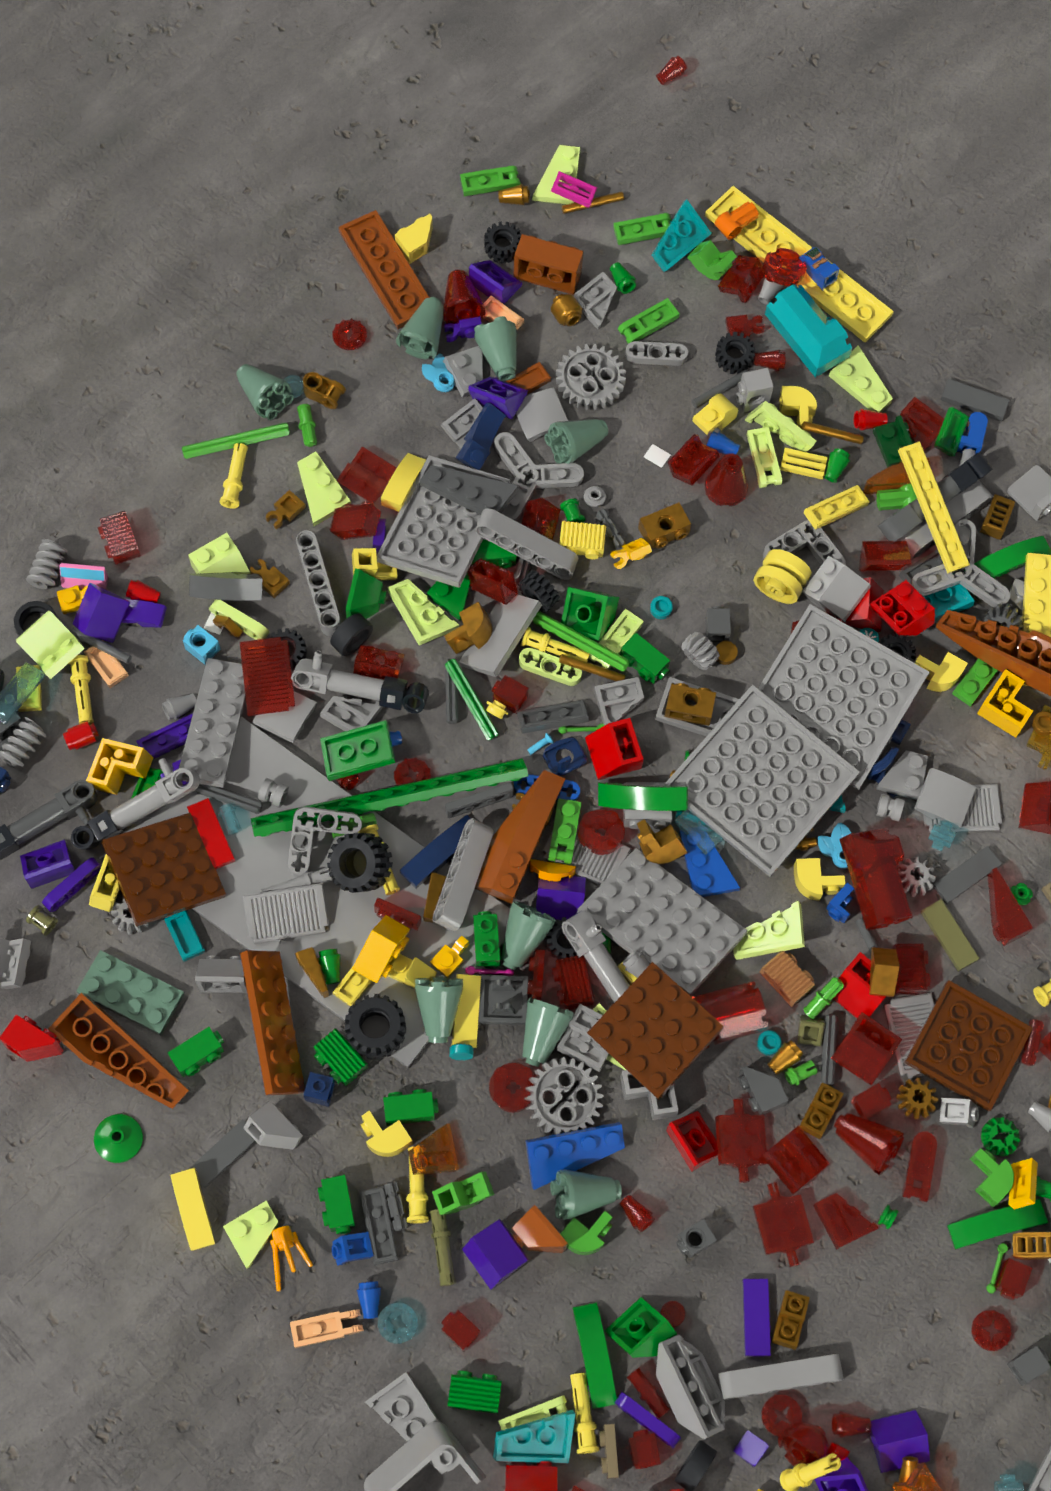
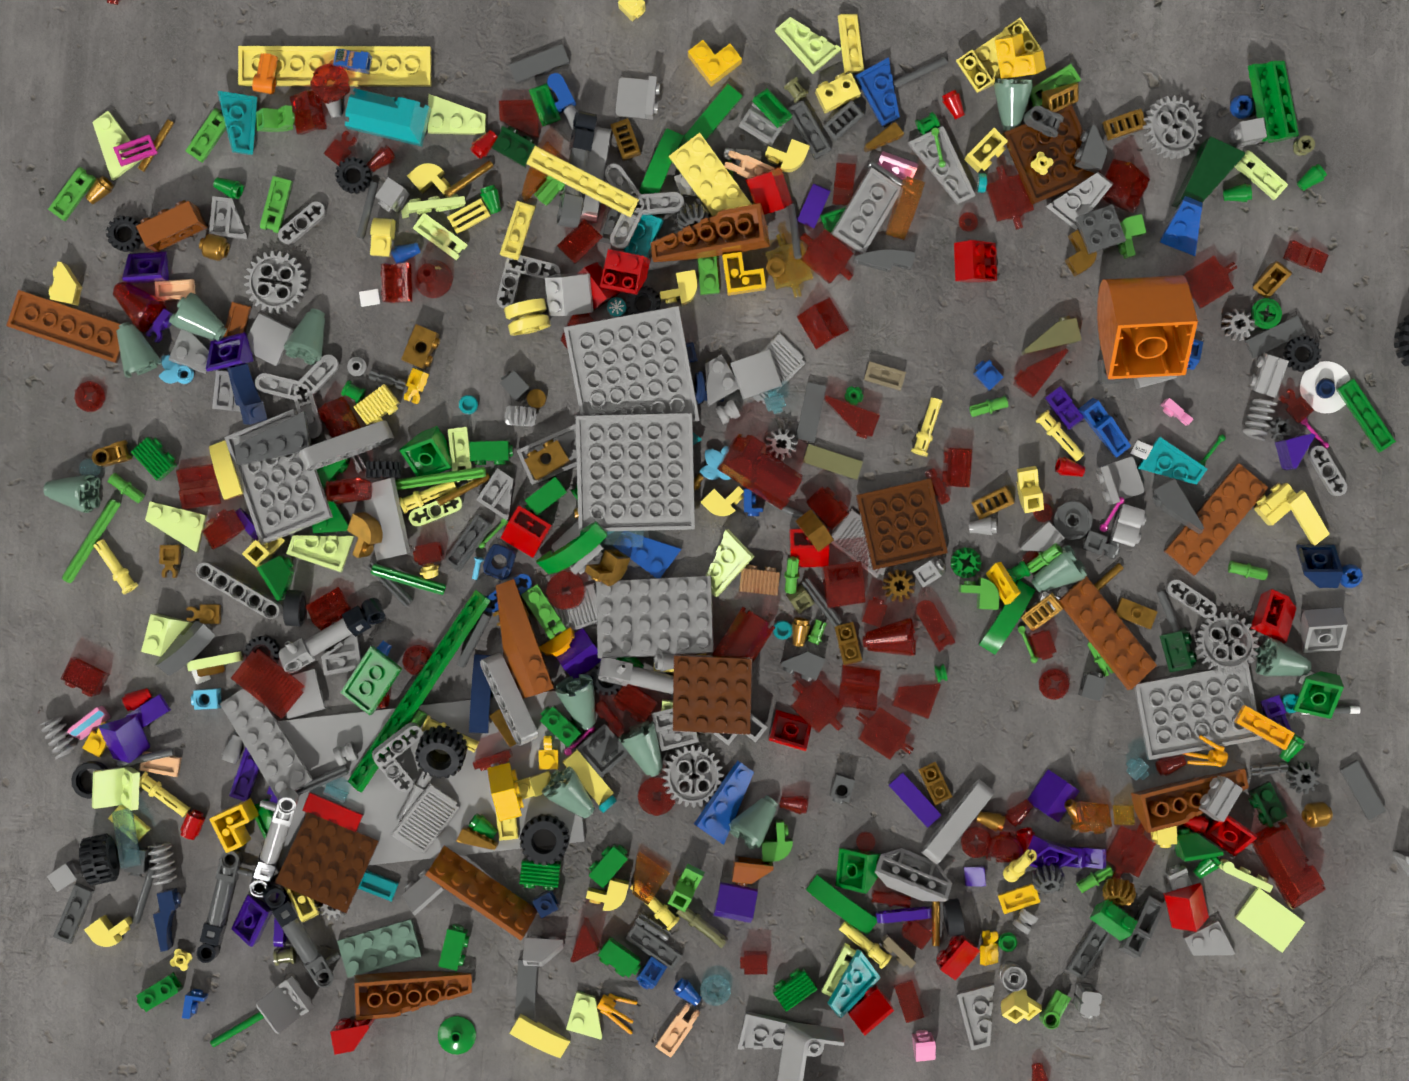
camera: 45 degrees left, 20 degrees up
(72, 911) = (299, 938): none -> dark grey piece
(321, 1155) = (586, 943): none -> clear red slope
(353, 422) = (154, 458): none -> green brick
(660, 735) = (545, 496): none -> green brick
(672, 1458) = (936, 923): none -> pearl gold bar
(816, 1407) = (991, 820): none -> pearl gold cone

